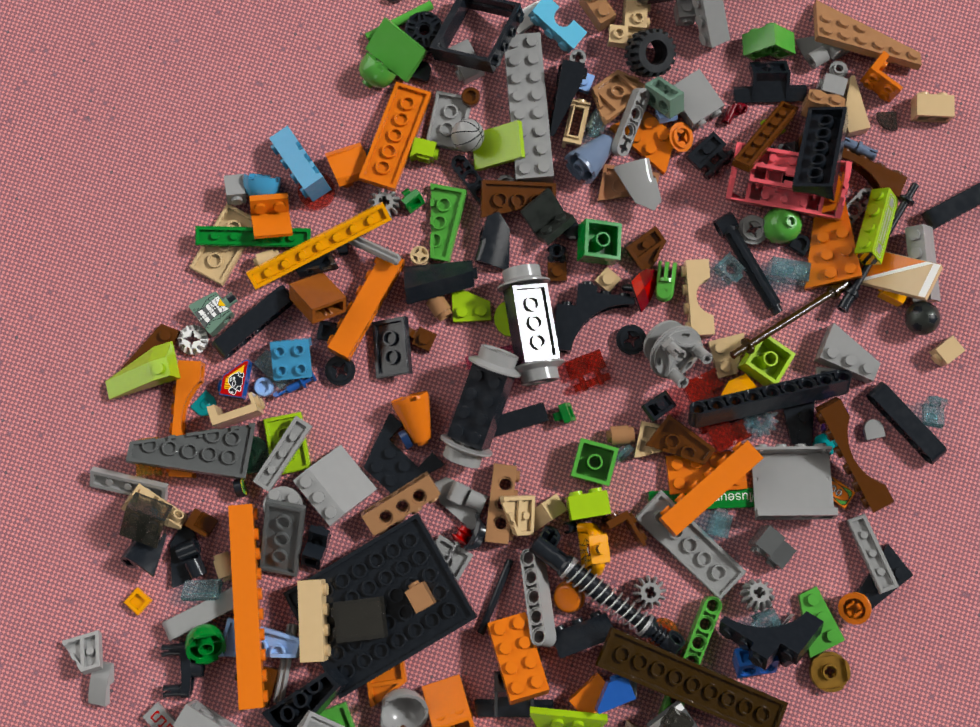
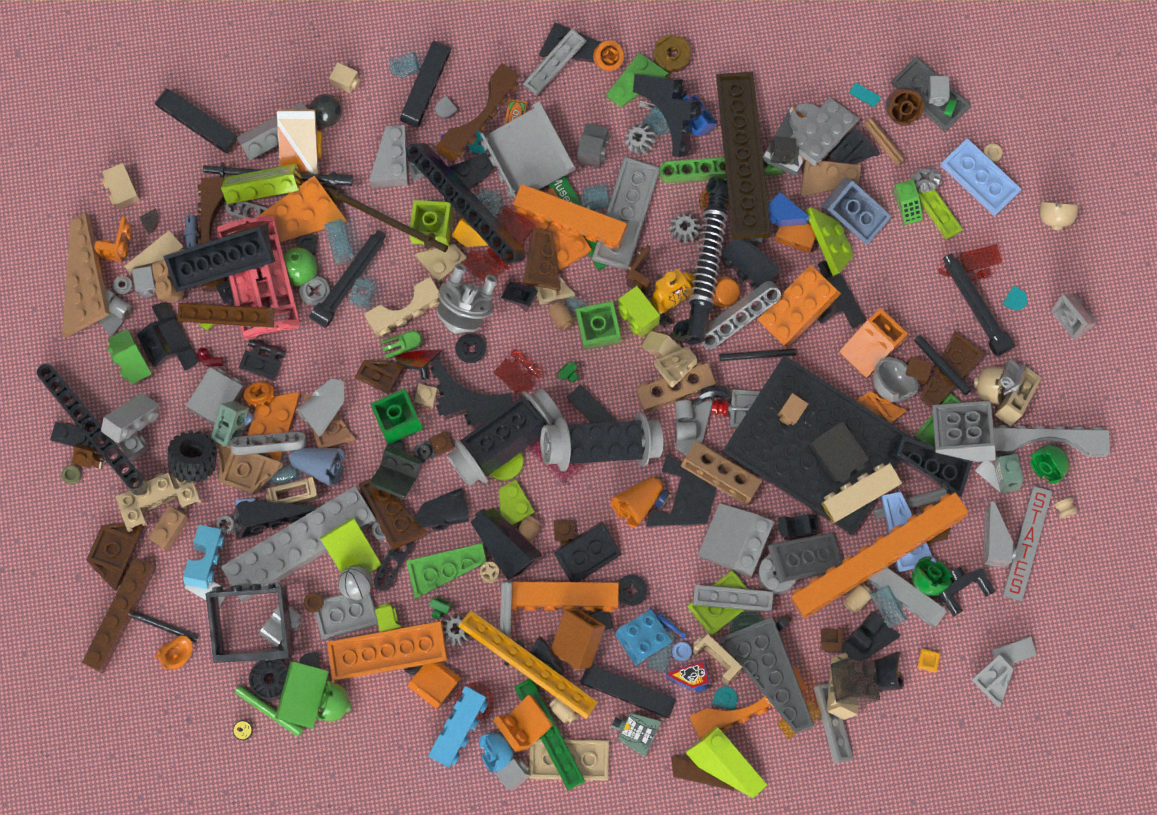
camera: 115 degrees left, 5 degrees down
(197, 346) = (668, 748): white gear -> none

